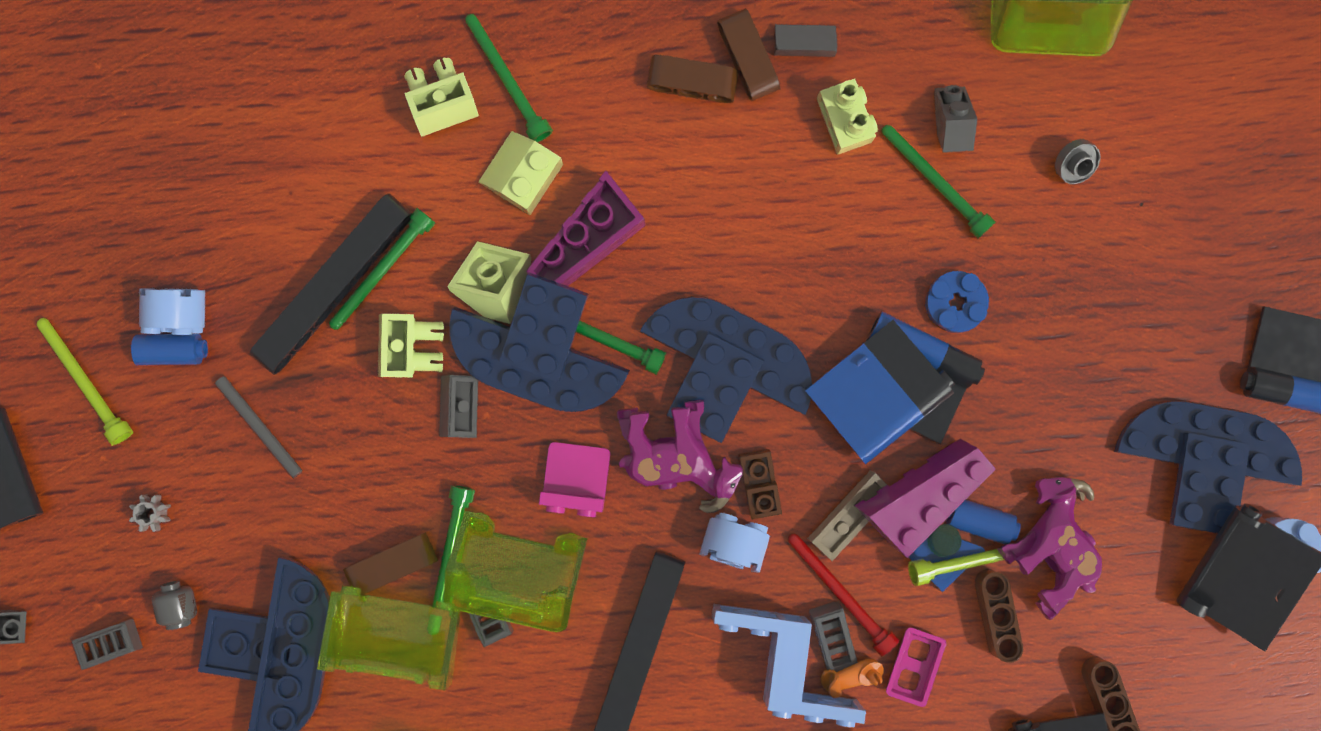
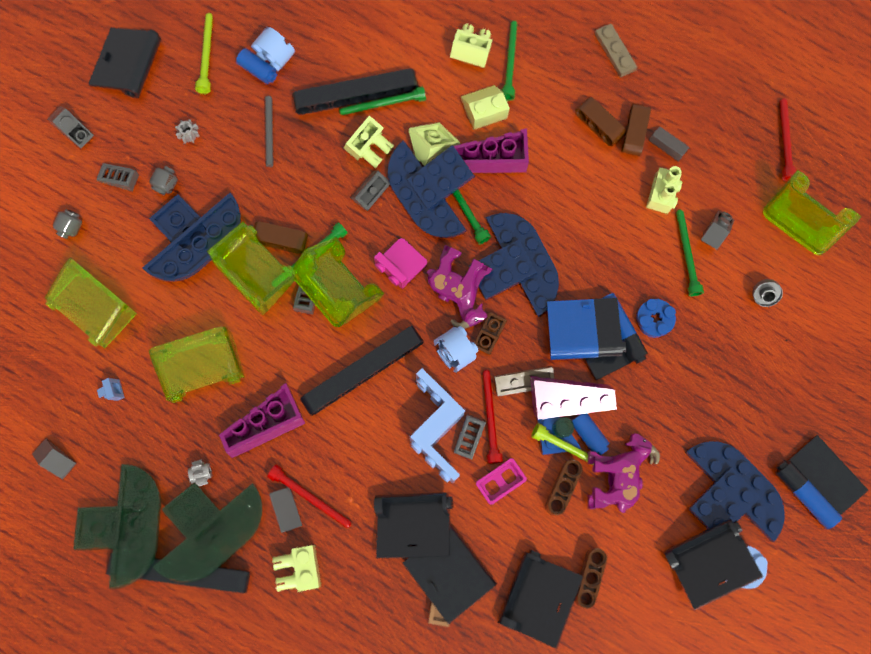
camera: 35 degrees right, 10 degrees down
(864, 673) = (468, 463): orange piece -> none

